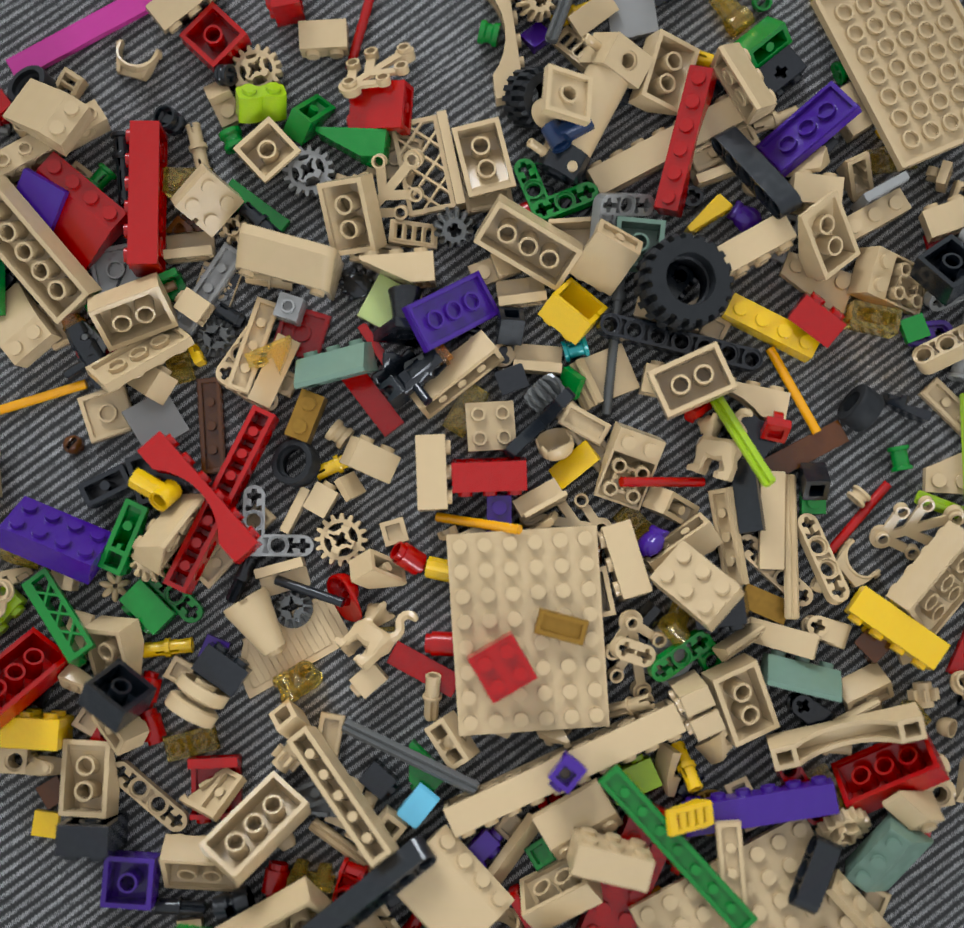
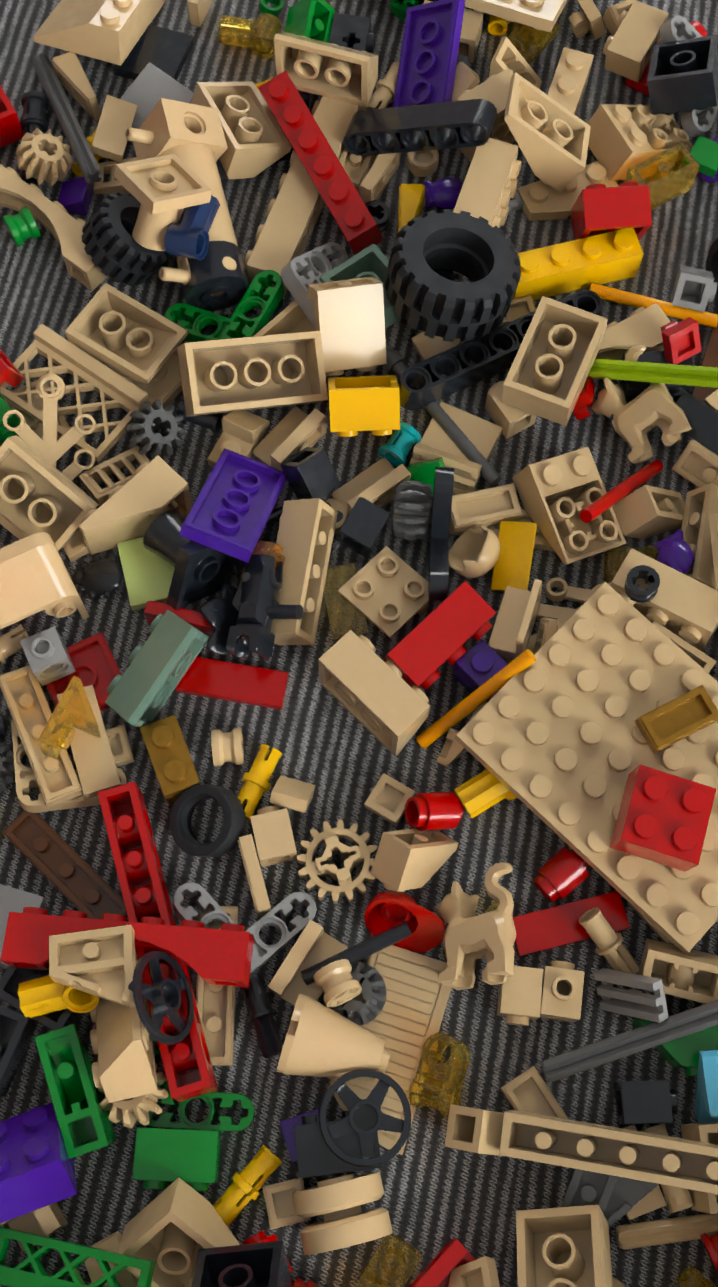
camera: 45 degrees left, 15 degrees down
(118, 586) = (110, 1171): tan plant -> none
(176, 494) = (95, 962): none -> tan wing
(193, 536) = (164, 997): none -> black wheel
(242, 669) = (365, 1118): none -> black wheel
(285, 758) = (514, 1182): tan gear -> none
(286, 598) = (337, 983): none -> tan wheel
(370, 459) = (289, 739): tan brick -> none
(388, 696) = (562, 992): none -> tan brick
(416, 729) = (632, 1001): none -> light grey tile
(612, 535) = (646, 573): none -> black bush
(822, 401) = (693, 288): none -> light grey brick
(880, 191) = (552, 56): light grey tile -> none

